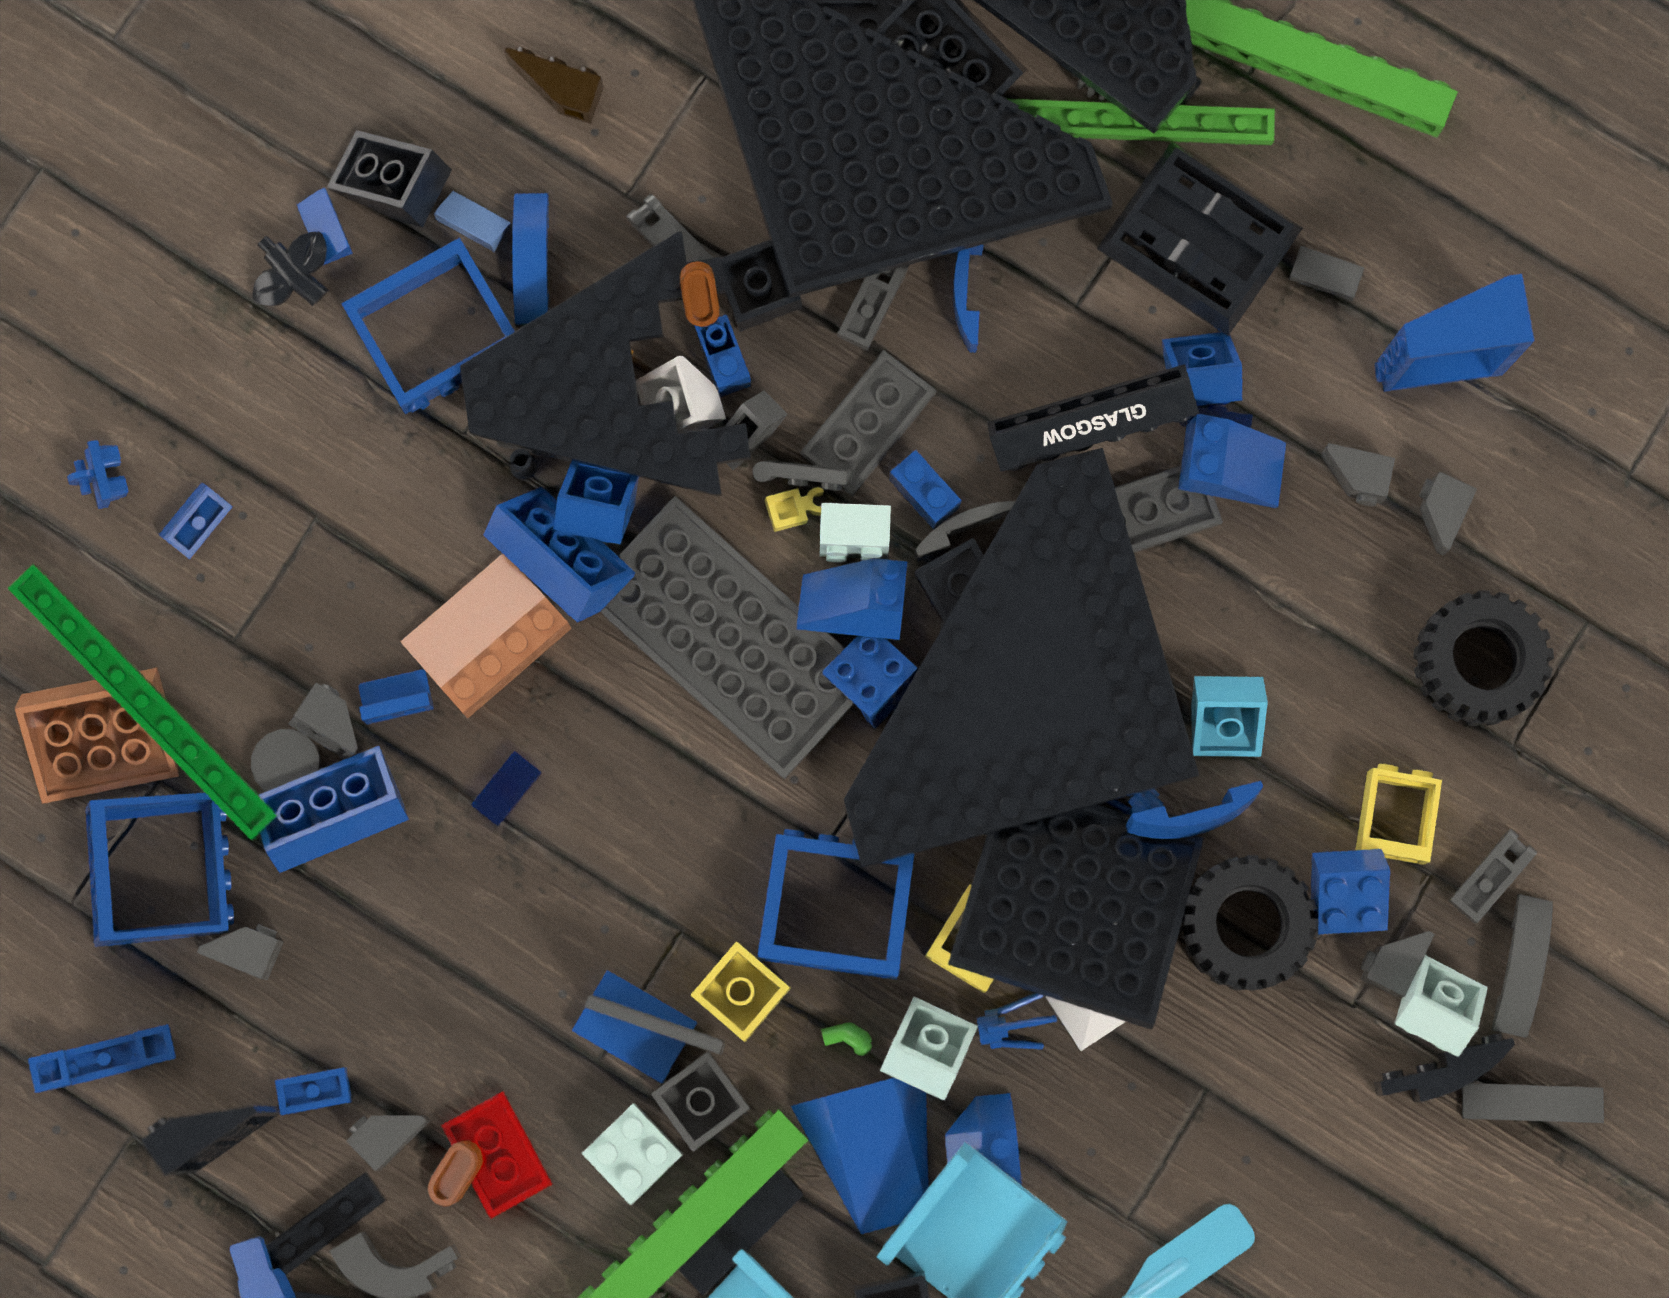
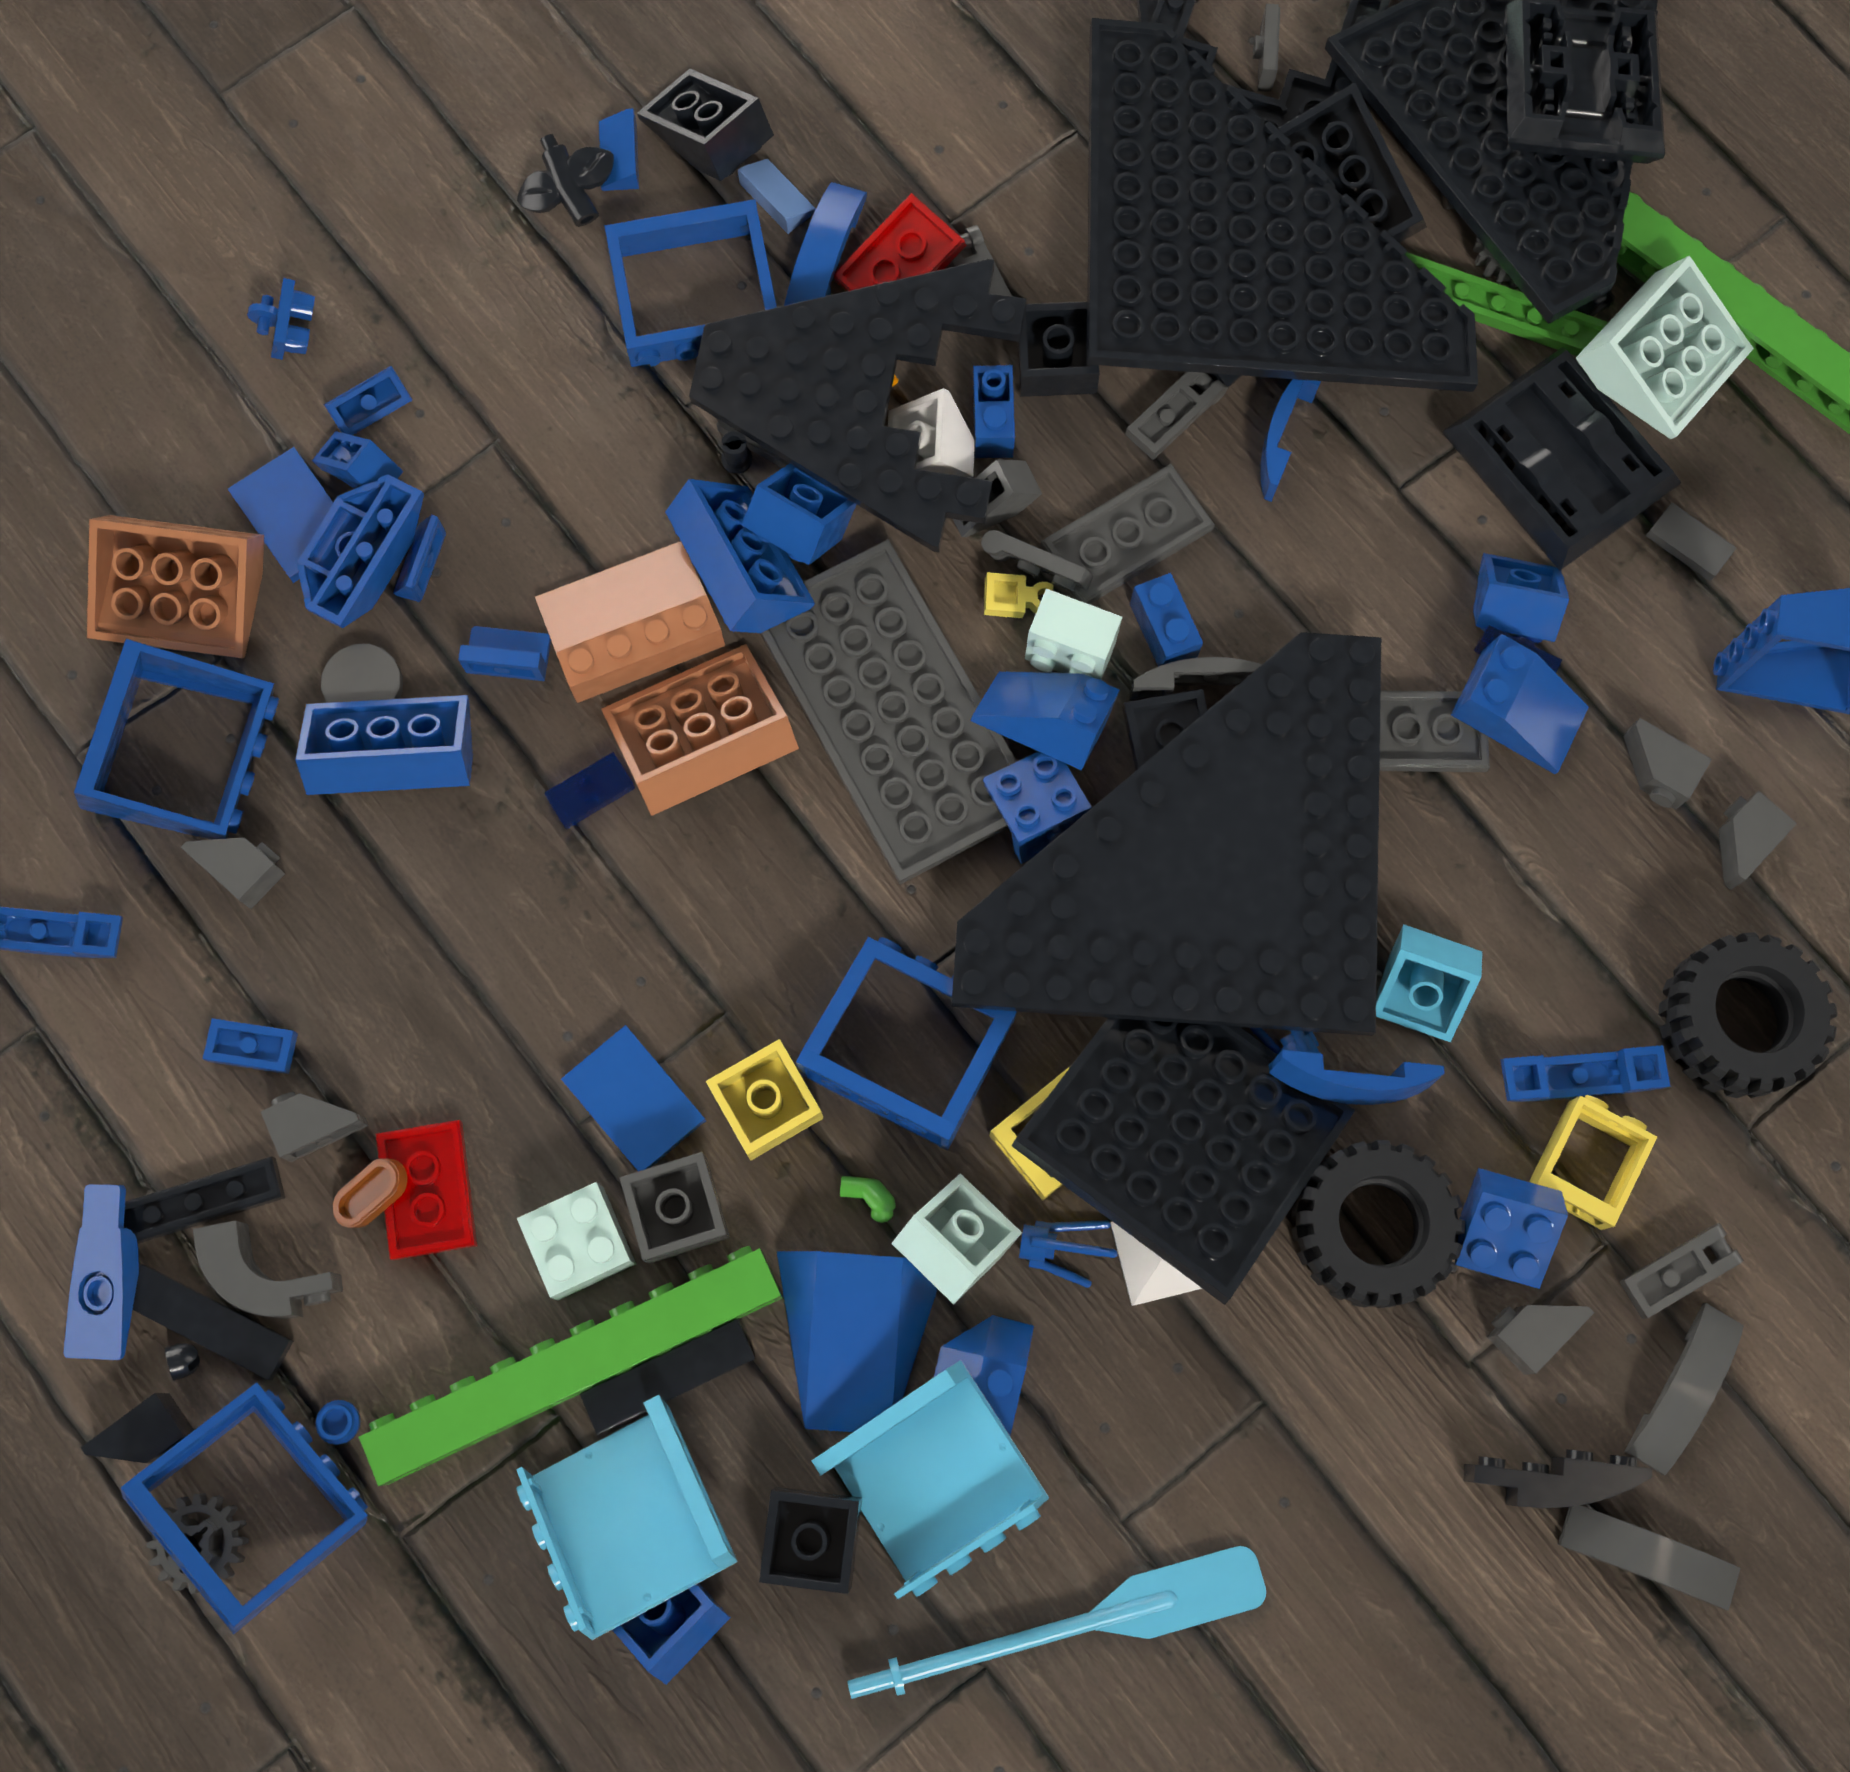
camera: 20 degrees right, 5 degrees down
(143, 701) = (227, 557): green plate -> none
(172, 640) = (284, 506): none -> blue tile
(195, 1141) = (95, 1047): black slope -> none
(211, 580) = (355, 460): none -> blue arch
(241, 655) = (358, 549): none -> blue wedge
(292, 643) = (420, 559): none -> blue slope
(326, 720) = (419, 647): dark grey slope -> none
(565, 88) = (923, 91): dark brown slope -> none
(577, 707) = (700, 729): none -> nougat slope
(597, 241) = (903, 246): none -> red tile
(655, 1024) = (653, 1100): dark grey tile -> none
(699, 294) = (990, 328): dark orange tile -> none
(1093, 418) = (1382, 603): black brick -> none
(1256, 120) = (1667, 349): none -> light aqua slope
(1372, 747) = (1585, 1074): none -> blue slope
(1442, 1006) = (1578, 1401): light aqua brick -> none

